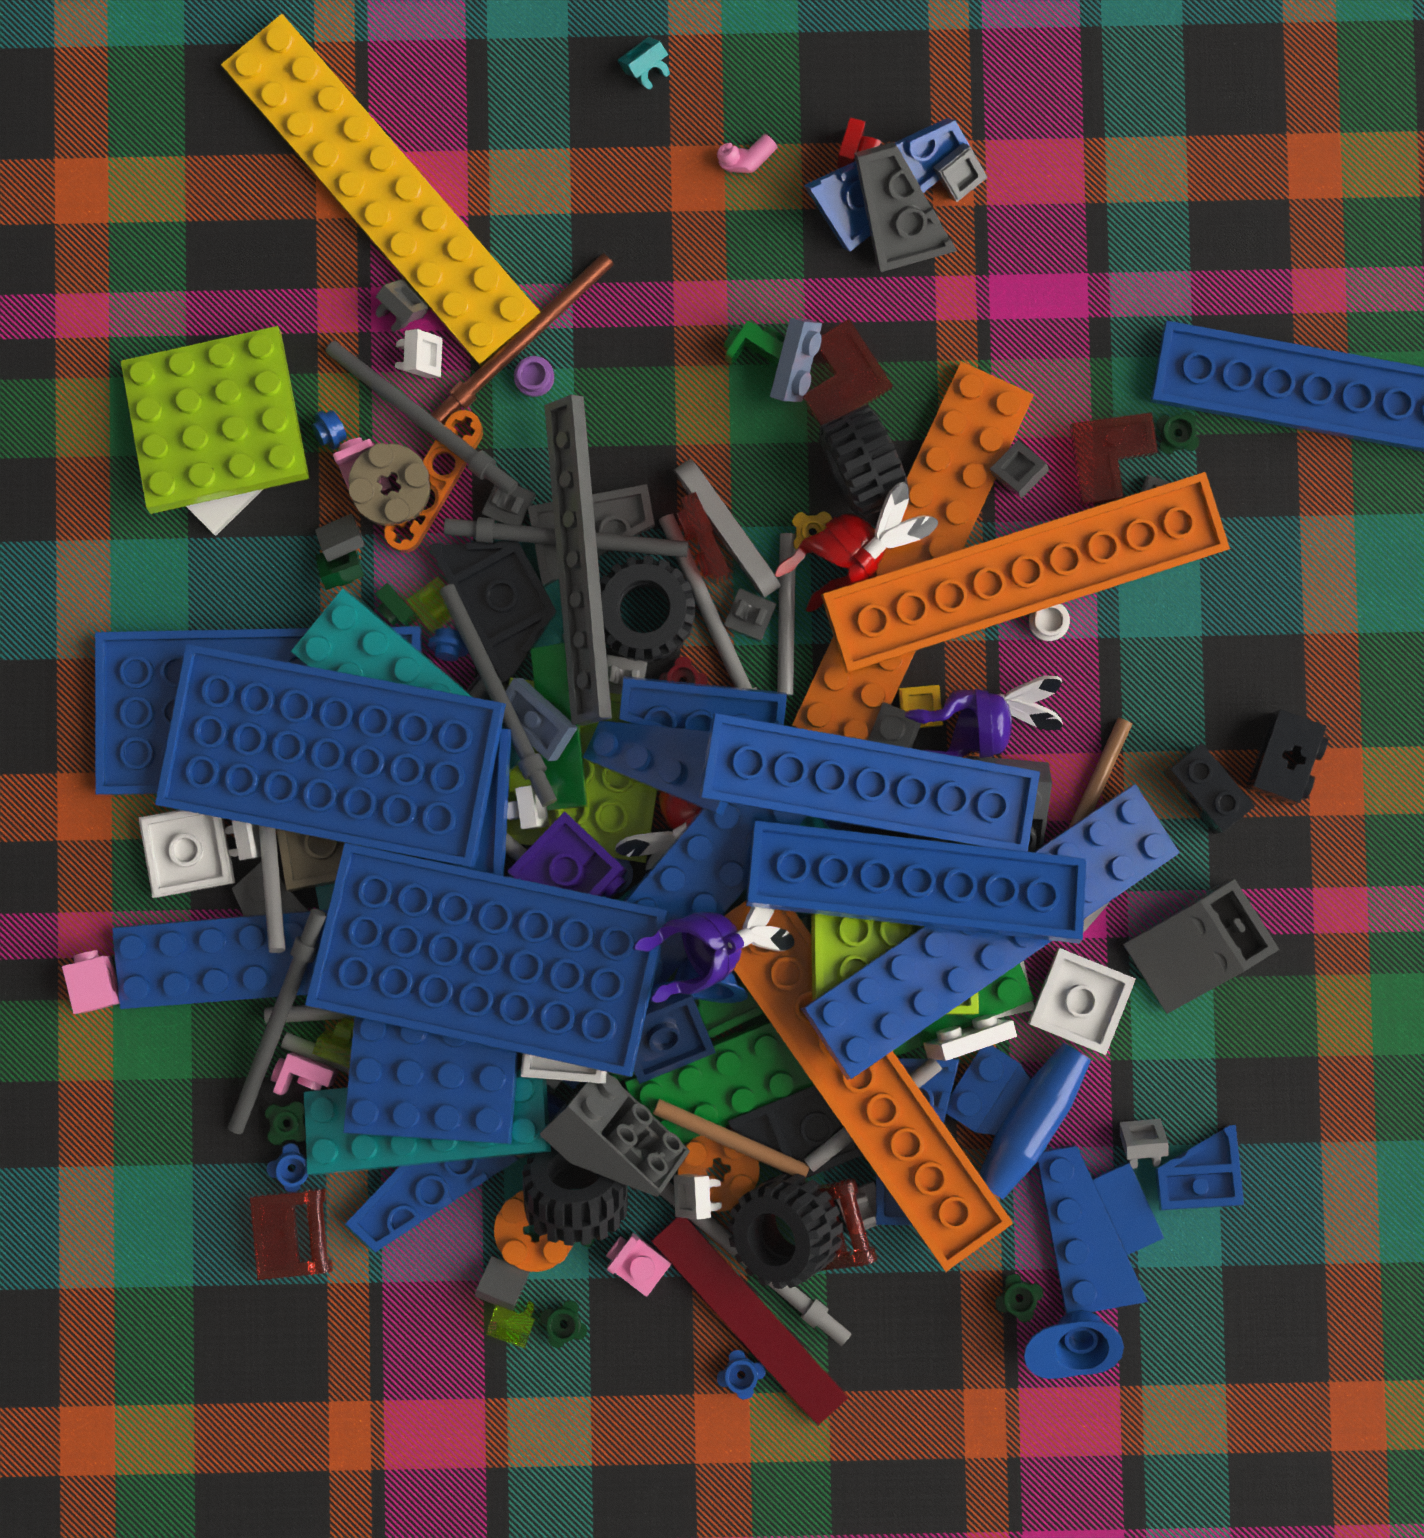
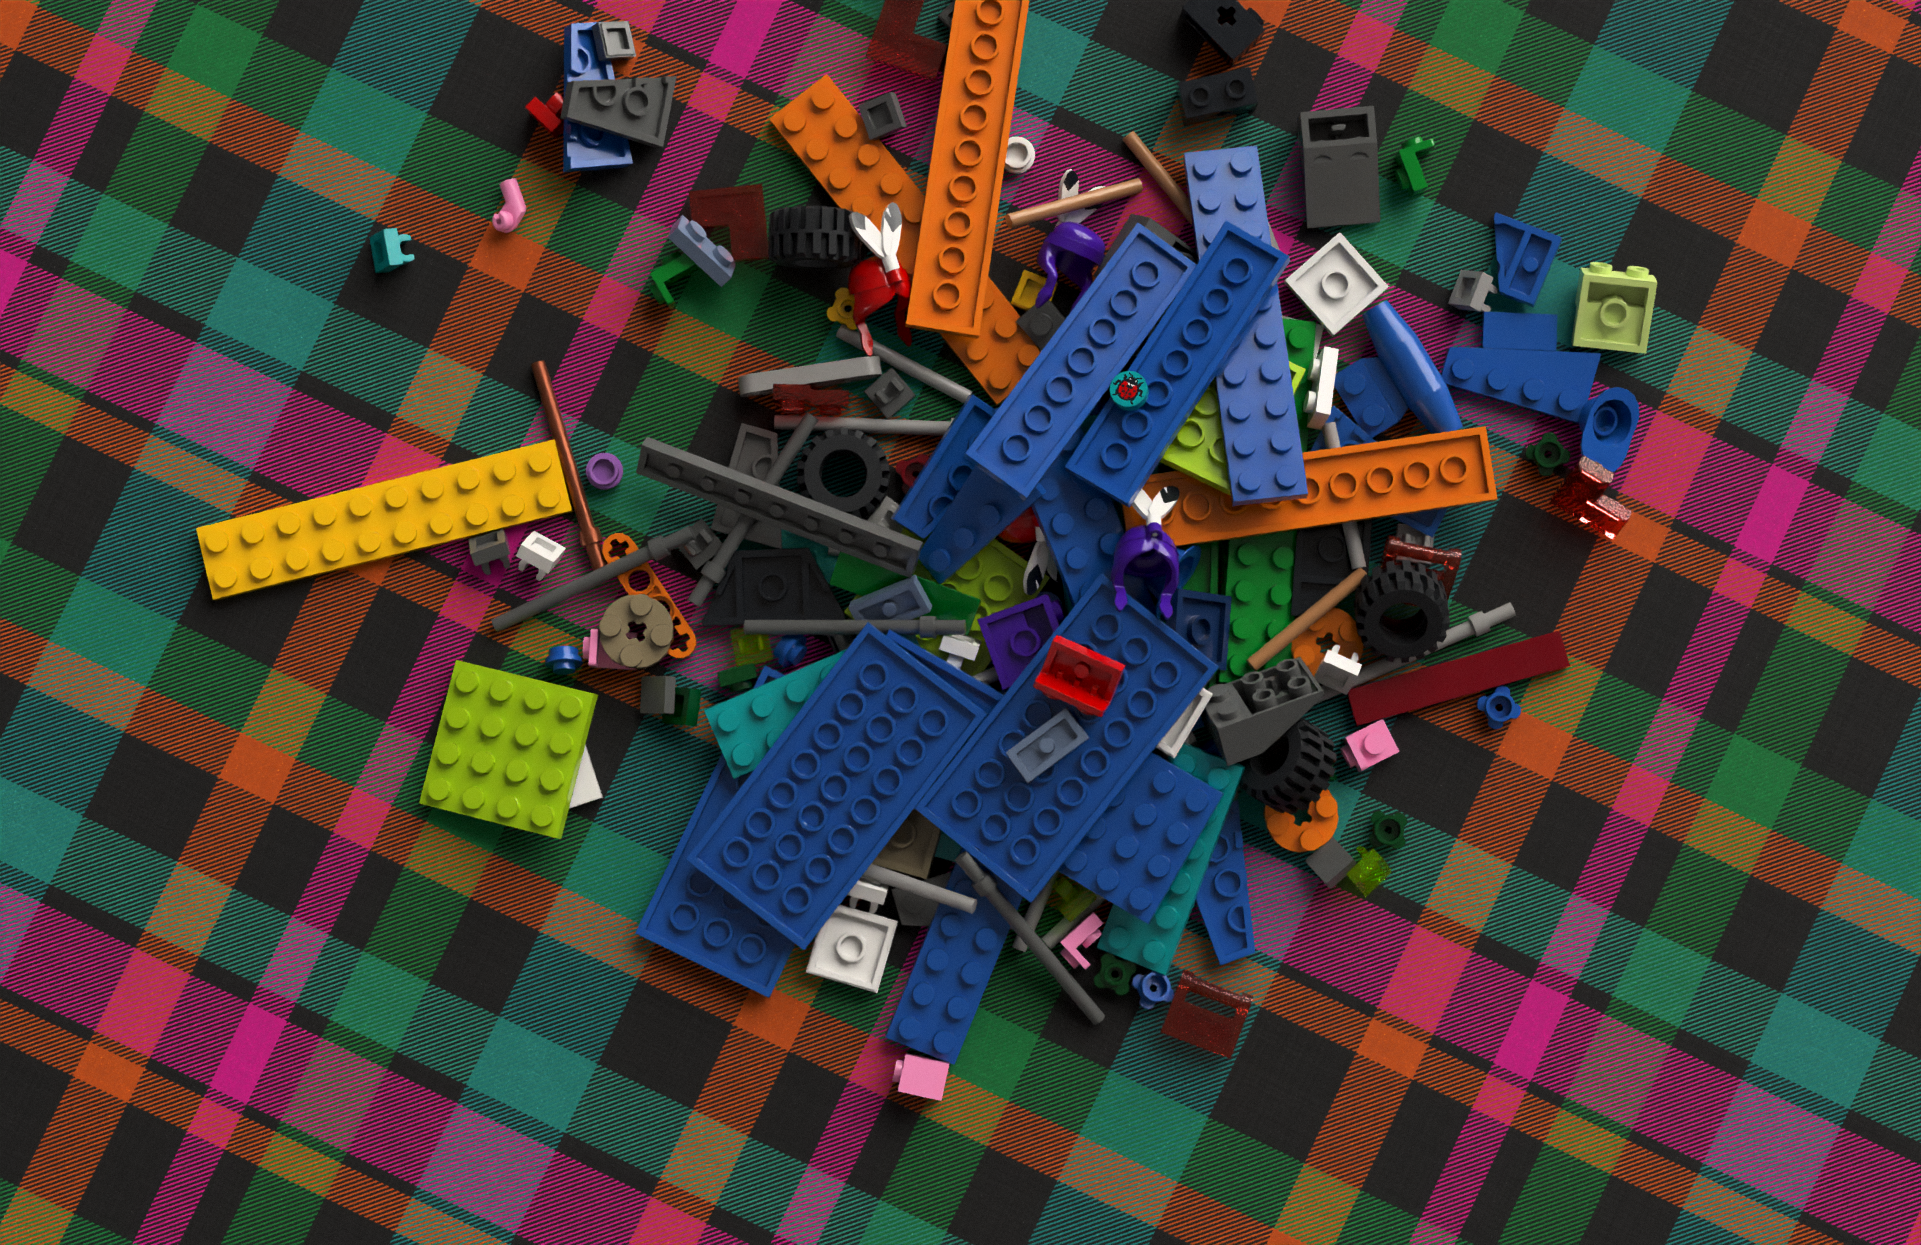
camera: 65 degrees left, 0 degrees up
(467, 943) = (1047, 745): none -> sand blue plate
(549, 940) = (1079, 676): none -> red bracket
(863, 846) = (1129, 390): none -> tile
(993, 1357) = (1584, 498): none -> clear red plate
(1029, 700) = (1073, 203): none -> medium nougat bar
(1199, 1292) = (1614, 308): none -> yellowish green plate
(1232, 1018) = (1410, 173): none -> green bracket

